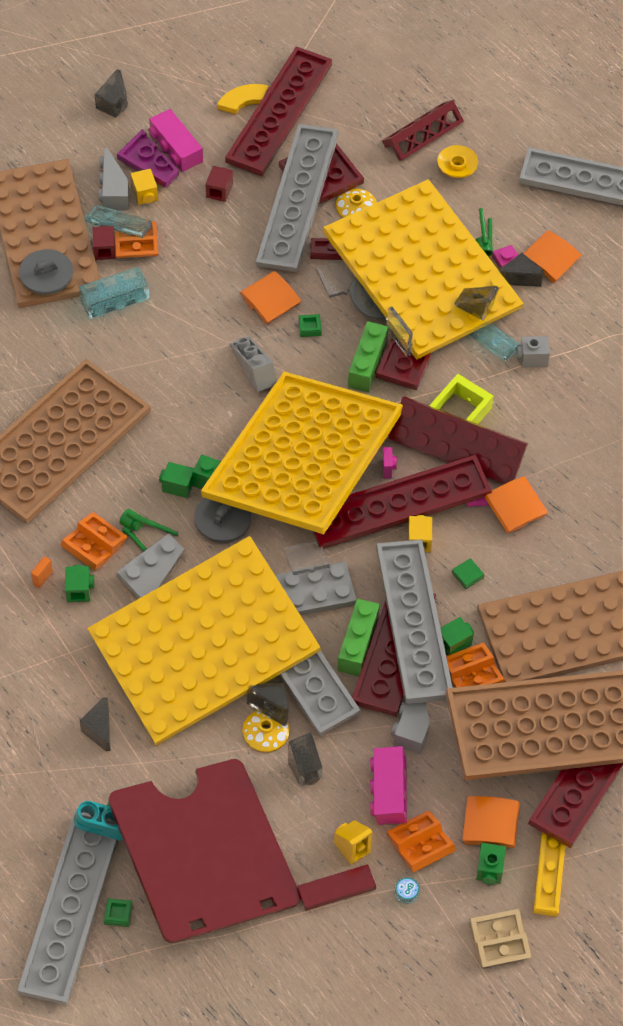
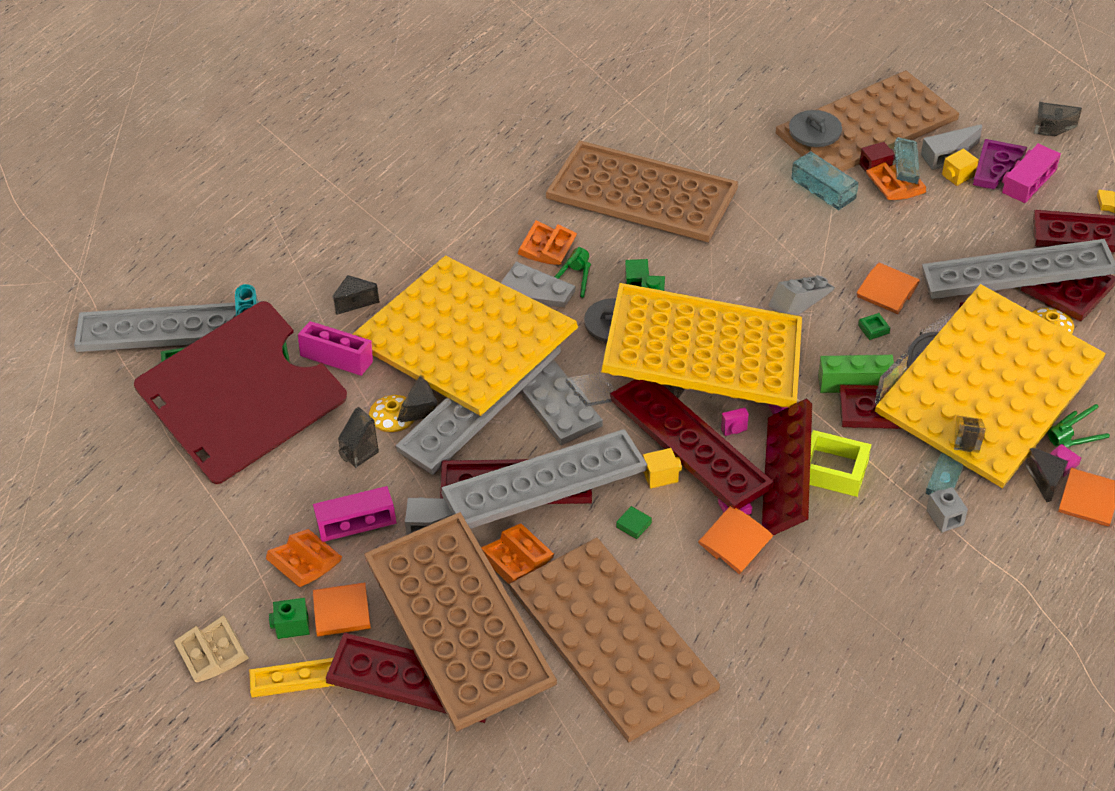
camera: 75 degrees right, 10 degrees down
(41, 572) = (496, 217): orange tile -> none
(78, 583) = (494, 242): green brick -> none
(175, 754) = (335, 348): none -> dark pink brick
(219, 183) = (1000, 215): dark red brick -> none
(336, 887) = (236, 505): dark red tile -> none
(353, 841) = (281, 498): yellow slope -> none
(358, 637) = (513, 444): bright green brick -> none
(407, 890) = (247, 560): tile -> none
(456, 636) = (548, 525): green brick -> none

